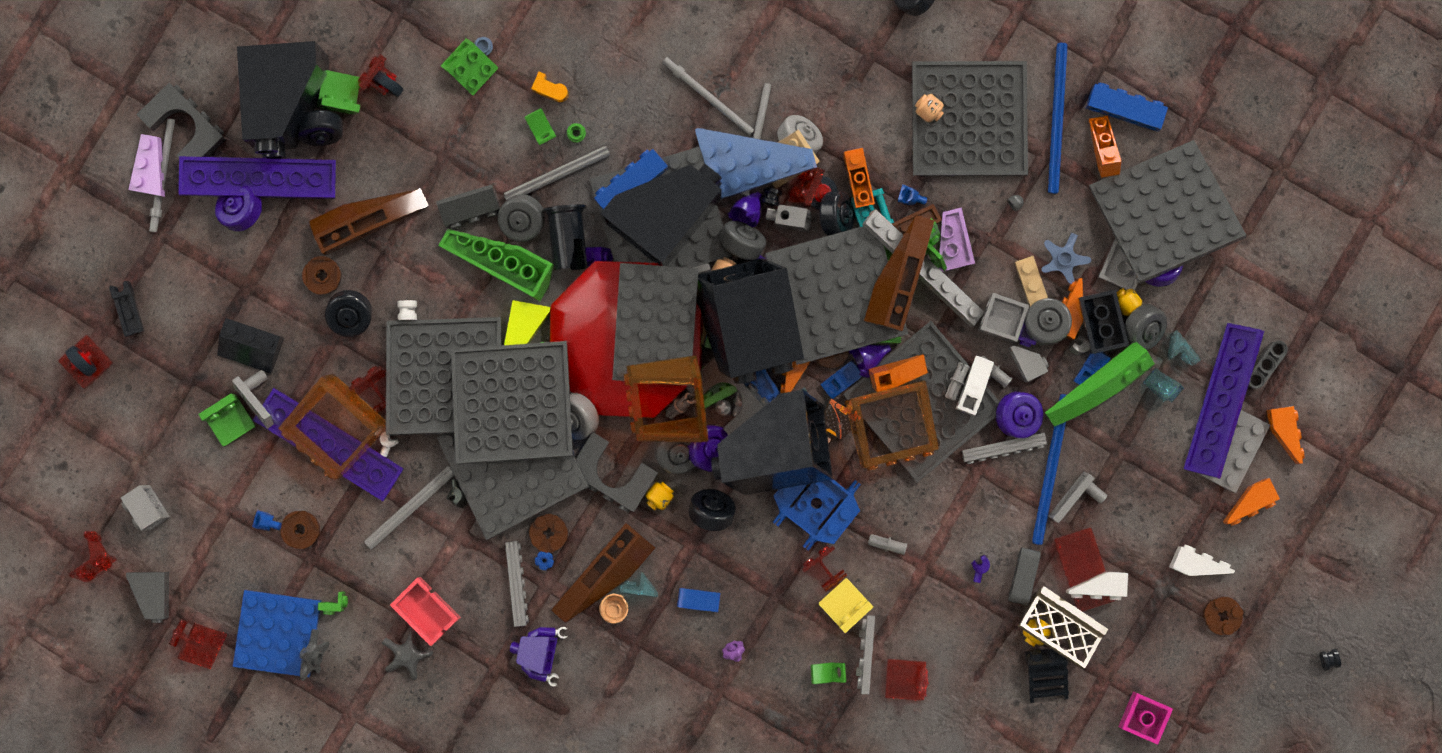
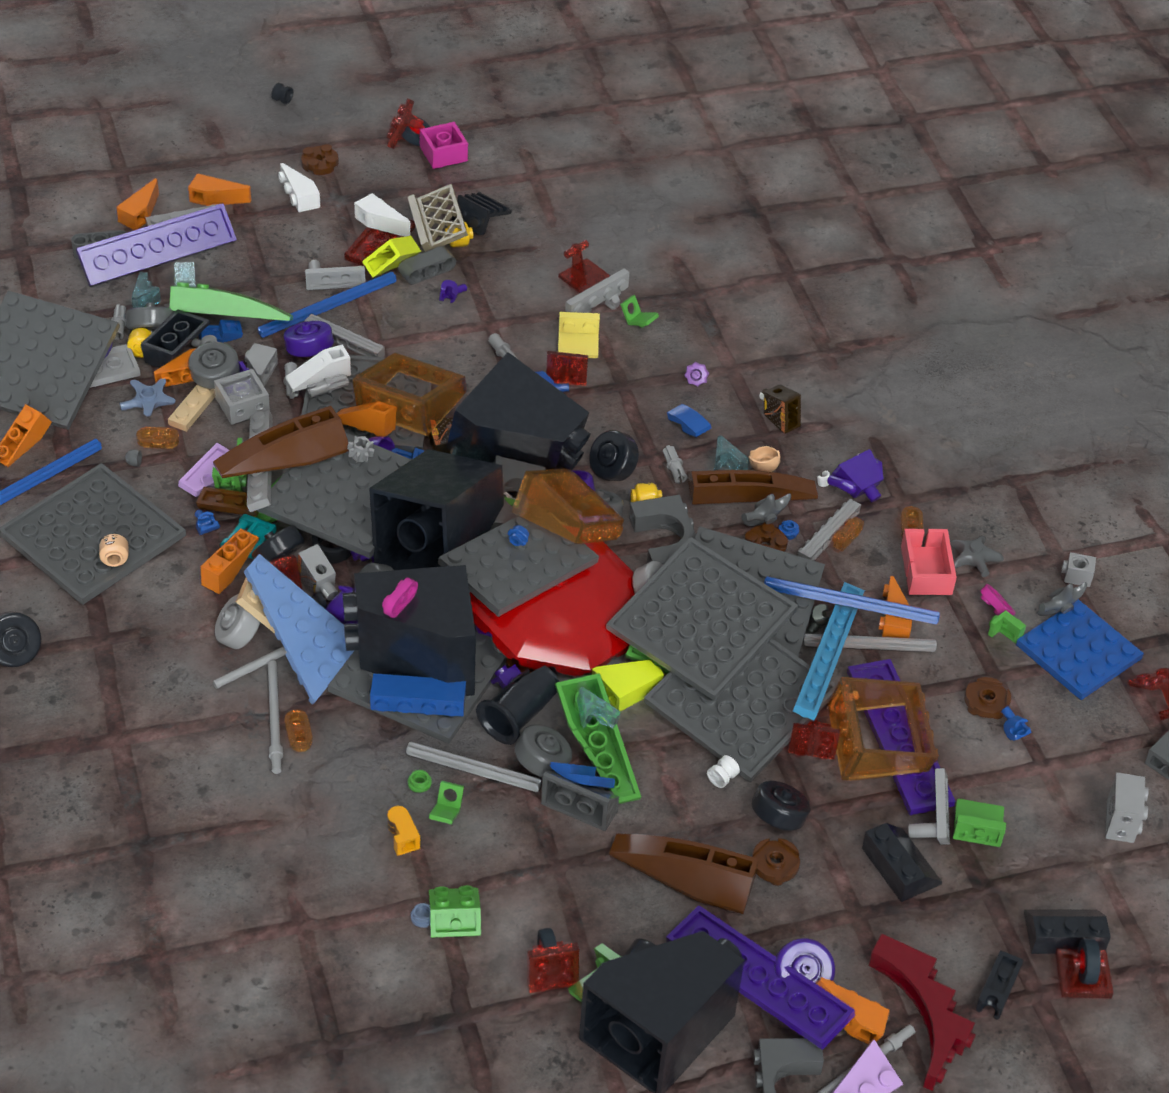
camera: 140 degrees left, 40 degrees down
(119, 386) = (1064, 929): none -> black slope
(130, 245) = (916, 974): none -> dark red arch
(179, 208) = (869, 1015): none -> orange slope
(320, 710) = (1079, 569): none -> light grey brick
(356, 622) = (993, 598): none -> dark pink plate
(408, 544) = (892, 625): none -> orange slope
(415, 458) = (826, 657): none -> dark azure plate
(439, 518) = (853, 600): none -> axle
(468, 643) = (911, 519): none -> clear orange plate
(477, 217) = (582, 774): none -> blue slope
(503, 600) = (848, 534): none -> clear orange plate
(512, 265) = (591, 705): none -> clear light blue slope
(564, 551) = (766, 510): none -> dark grey animal
(638, 670) = (782, 407): none -> dark brown torso
(665, 332) = (518, 535): none -> blue plate
(667, 182) = (399, 599): none -> dark pink plate
(669, 546) = (674, 464): none -> light grey axle
(682, 98) = (300, 734): none -> clear orange plate
(855, 328) = (360, 449): none -> light grey gear
(1020, 234) = (157, 437): none -> clear orange plate
(1049, 553) = (391, 255): none -> neon yellow slope
(1167, 308) = (119, 316): none -> light grey axle
(1192, 712) = (405, 126): none -> clear red plate

